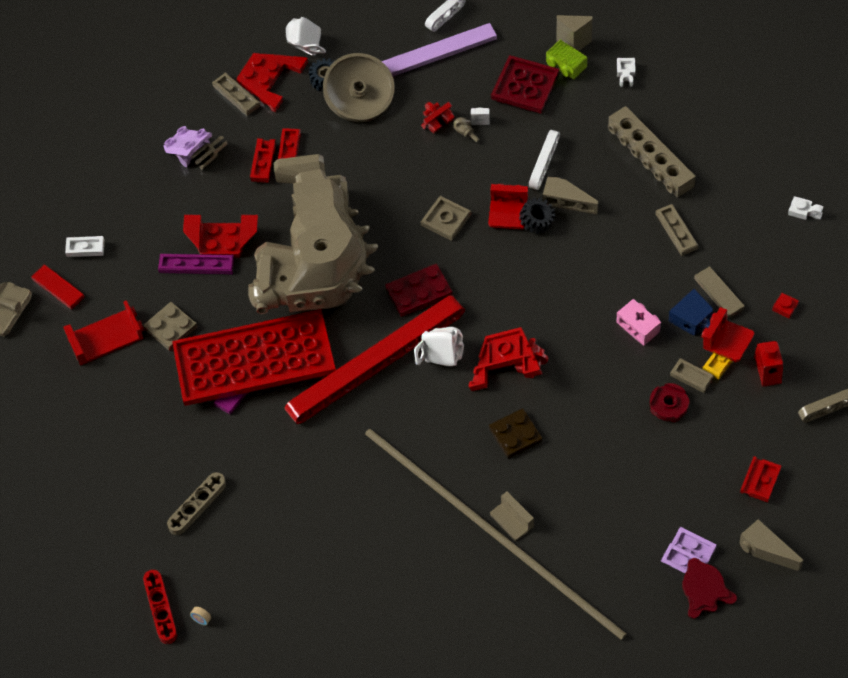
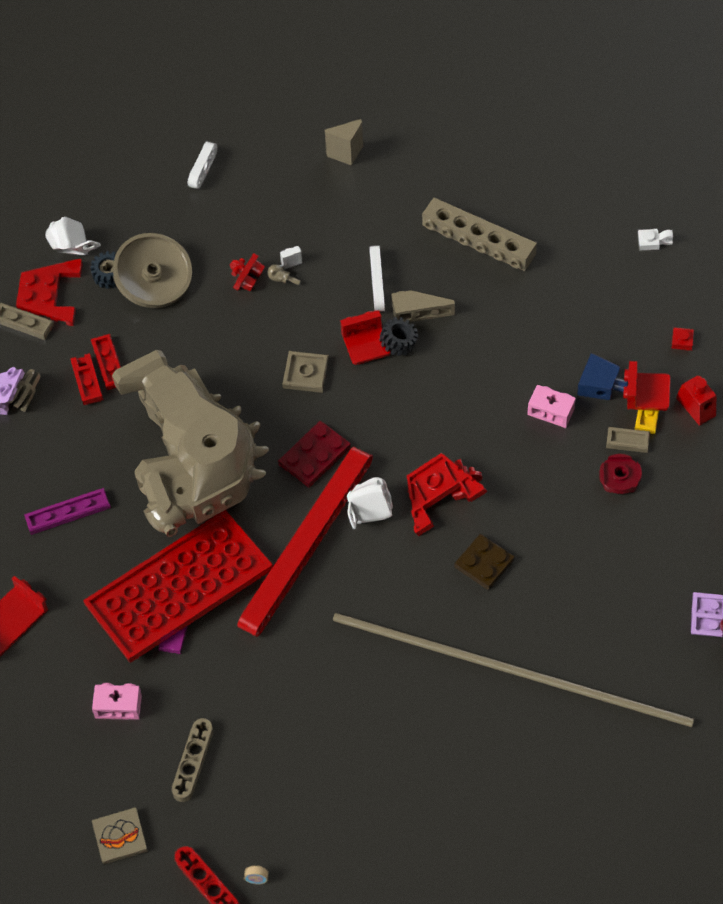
camera: 25 degrees left, 0 degrees up
(110, 541) = (119, 836): none -> dark tan tile
(159, 433) = (106, 704): none -> bright pink brick
(170, 325) = (71, 585): dark tan plate -> none
(220, 237) = (83, 473): red piece -> none
(440, 49) = (216, 203): lavender tile -> none
(512, 517) = (524, 646): dark tan panel -> none
(525, 84) = (319, 210): dark red plate -> none
(566, 59) = (349, 171): lime brick -> none
(626, 70) = (413, 162): white plate -> none
(676, 229) = (541, 302): dark tan tile -> none
(719, 291) = (612, 347): dark tan tile -> none

